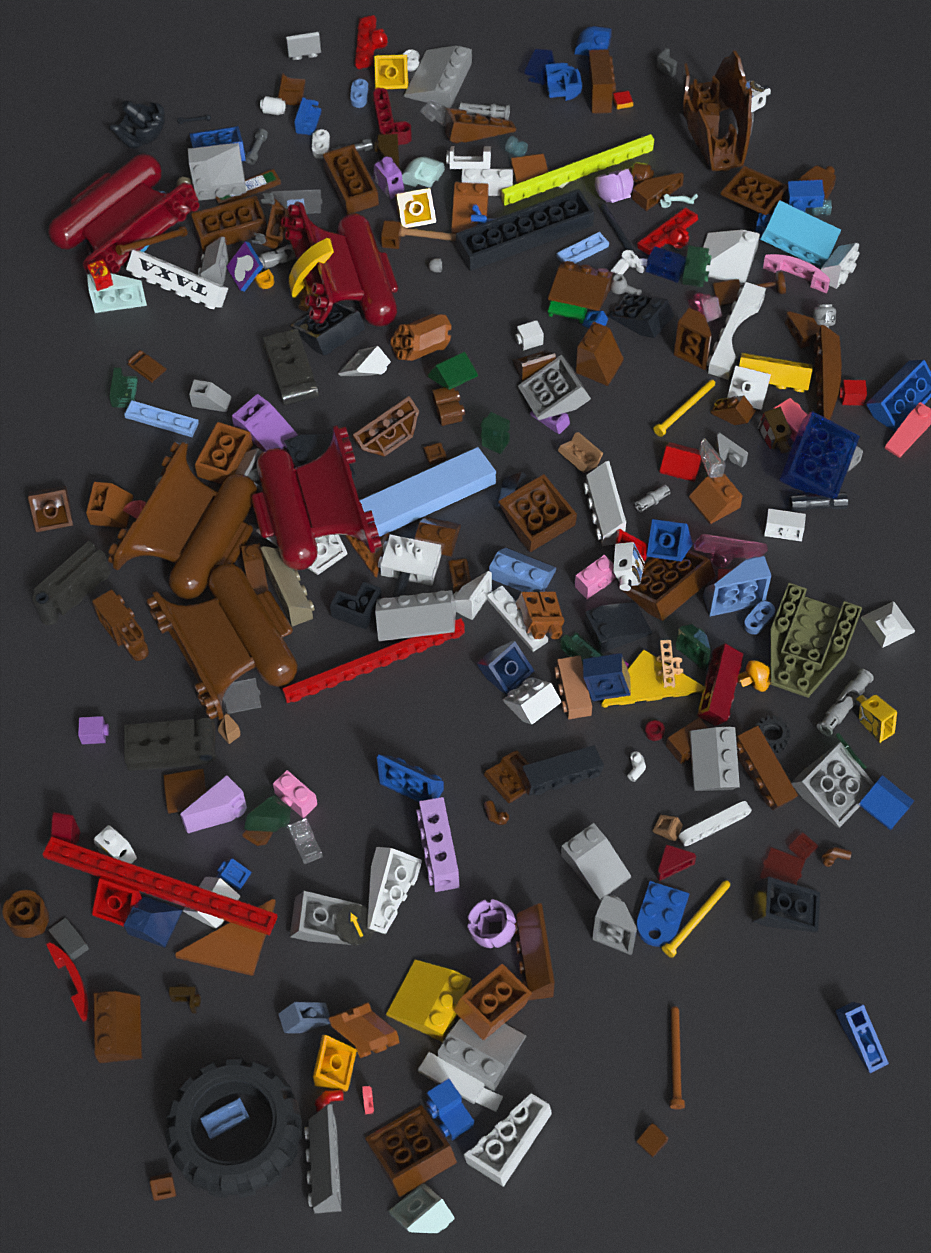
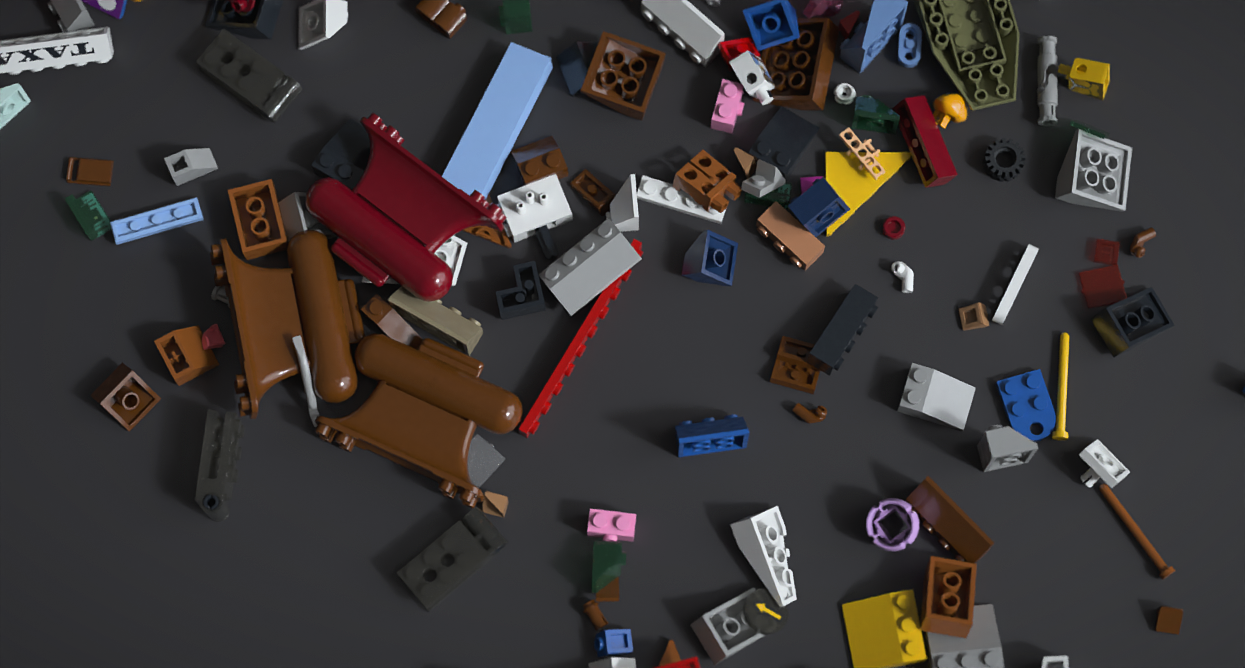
camera: 35 degrees left, 15 degrees up
(93, 730) = (365, 597): medium lavender brick -> none
(121, 624) = (306, 472): reddish brown brick -> none
(170, 562) = (306, 377): none -> light grey piece
(184, 789) = (503, 594): reddish brown slope -> none
(215, 807) = (552, 587): lavender slope -> none
(236, 846) = (595, 615): none -> reddish brown pin
(264, 423) = (274, 158): medium lavender slope -> none
(305, 841) = (654, 563): clear slope -> none
(388, 429) = (402, 79): reddish brown wedge -> none
(435, 453) = (467, 74): reddish brown tile -> none
(437, 845) = (766, 454): lavender brick -> none
(521, 571) = (651, 147): medium blue slope -> none
(532, 700) = (761, 275): white slope -> none
(579, 620) = (746, 162): none -> medium nougat slope
(584, 638) = (764, 181): none -> light grey slope
(674, 861) = (1003, 348): dark red slope -> none
(679, 742) = (935, 217): reddish brown brick -> none
(684, 989) = (1102, 465): none -> white tile
(687, 616) = (844, 88): none -> white plate
(714, 759) = (975, 222): light grey slope -> none
(764, 768) = (1021, 199): reddish brown wedge -> none
(886, 802) = (1151, 157): blue slope -> none

